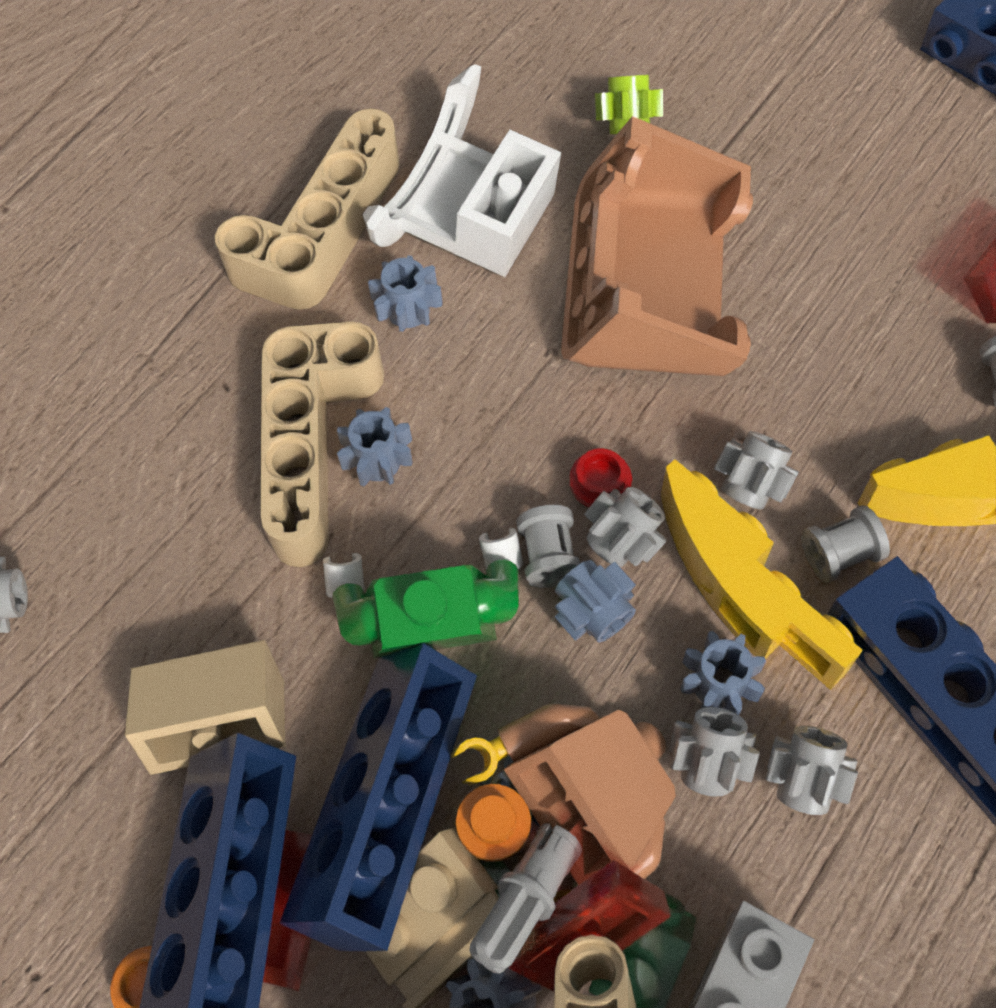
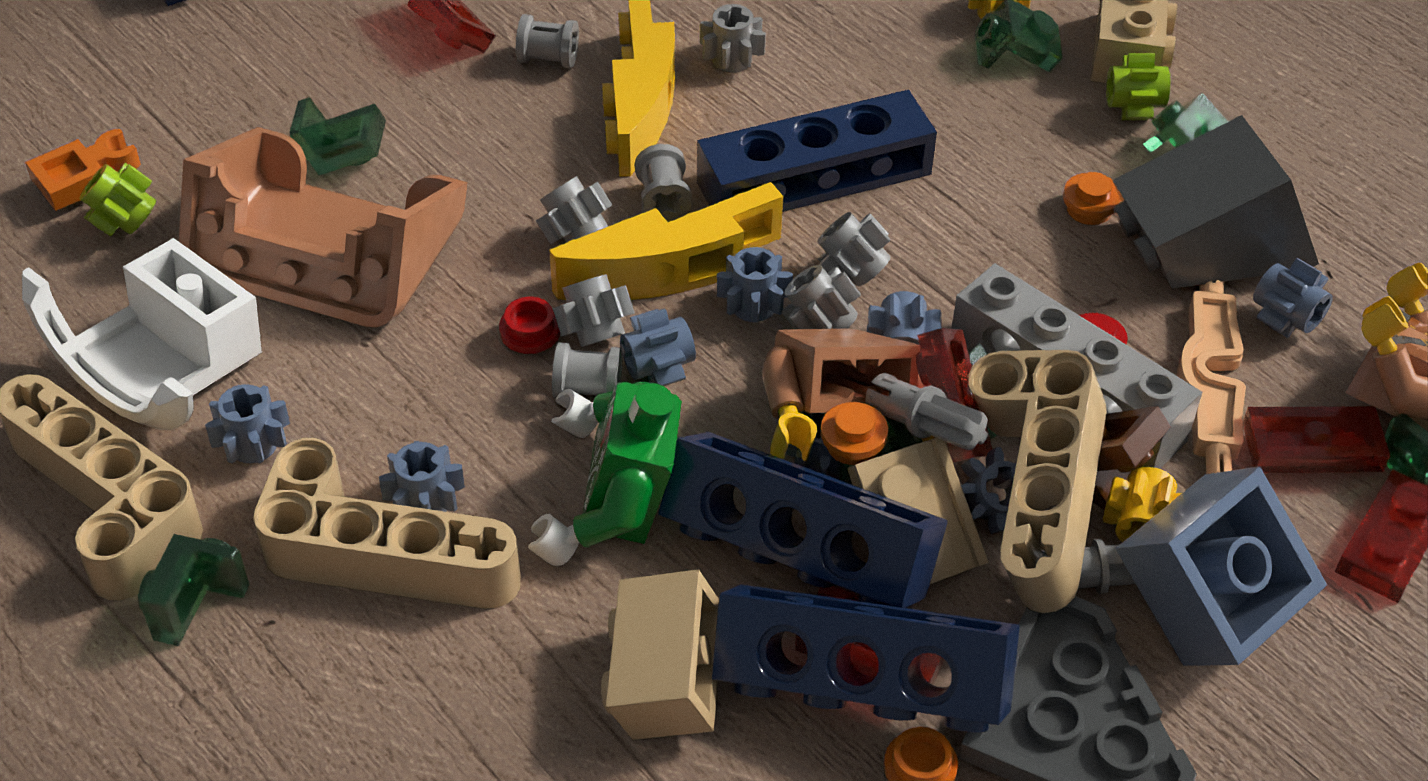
camera: 80 degrees left, 15 degrees down
(226, 308) = (182, 578): none -> clear green bracket
(667, 66) = (68, 169): none -> orange plate
(705, 853) = (903, 317): none -> sand blue gear
(780, 234) = (338, 140): none -> clear green bracket

